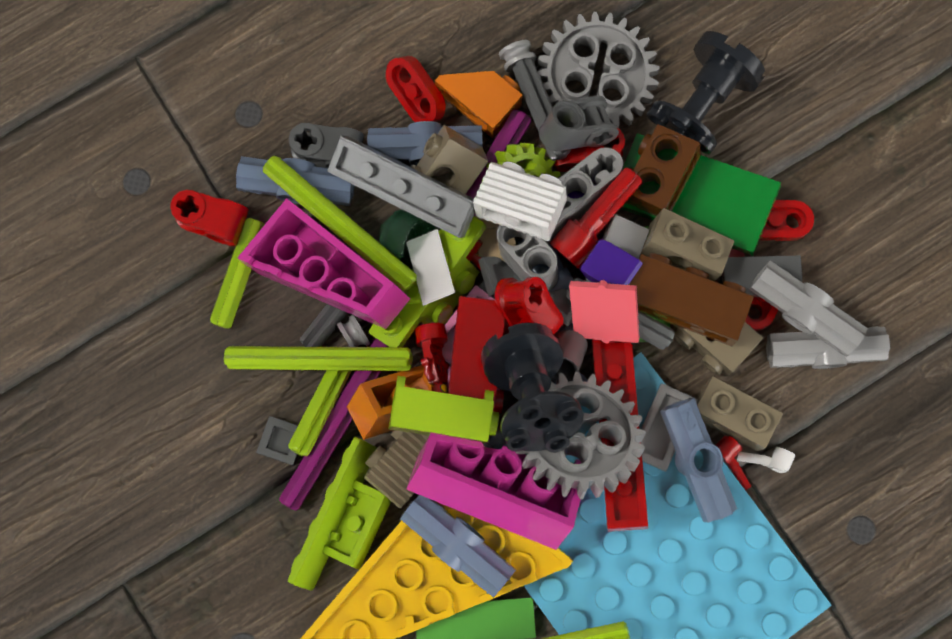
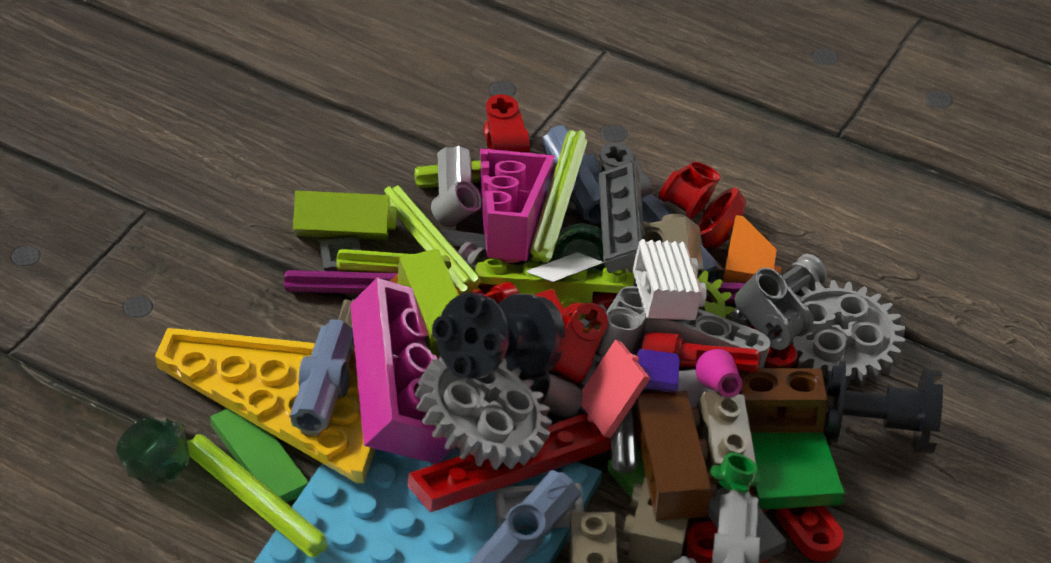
camera: 60 degrees right, 35 degrees down
(245, 420) = (343, 215): none -> lime brick
(274, 307) = (457, 194): none -> light grey piece
(345, 521) = (282, 312): lime bracket -> none
(381, 97) = (690, 188): none -> red piece
(643, 218) = (719, 372): none -> dark pink cone
(751, 258) = (736, 473): none -> green plate

